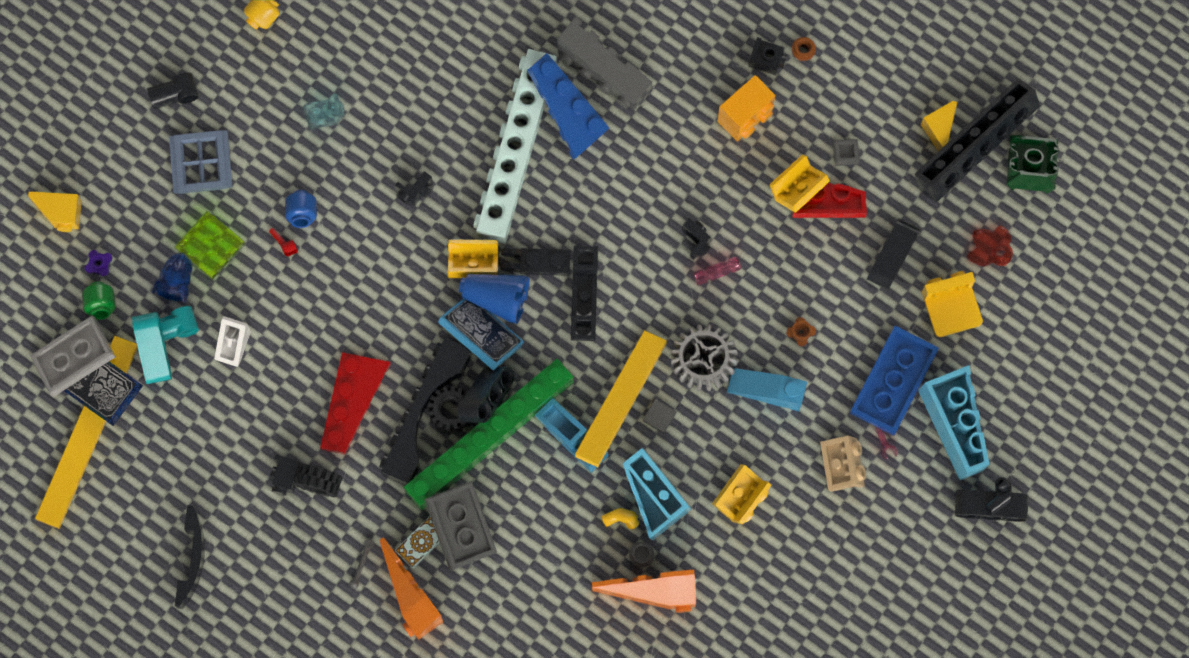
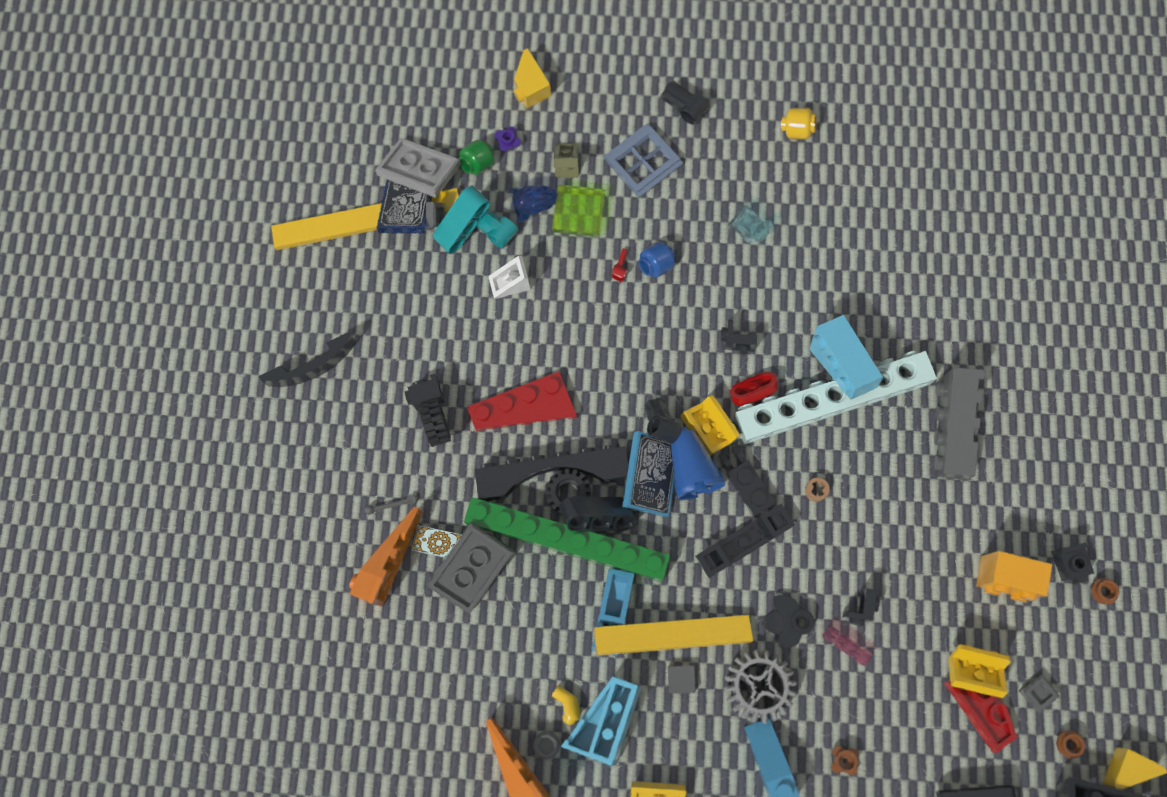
camera: 65 degrees right, 0 degrees up
(130, 366) = (435, 213): none -> dark grey tile
(154, 225) = (566, 160): none -> olive slope
(443, 295) = (660, 422): none -> black piece
(465, 203) = (754, 388): none -> red plate
(491, 115) = (845, 357): none -> medium azure wedge
(571, 111) = (898, 422): blue wing -> none
(575, 215) = (809, 487): none -> medium nougat bush
(667, 306) = (784, 621): none -> black plate
(901, 151) = (1078, 744): none -> dark orange plate

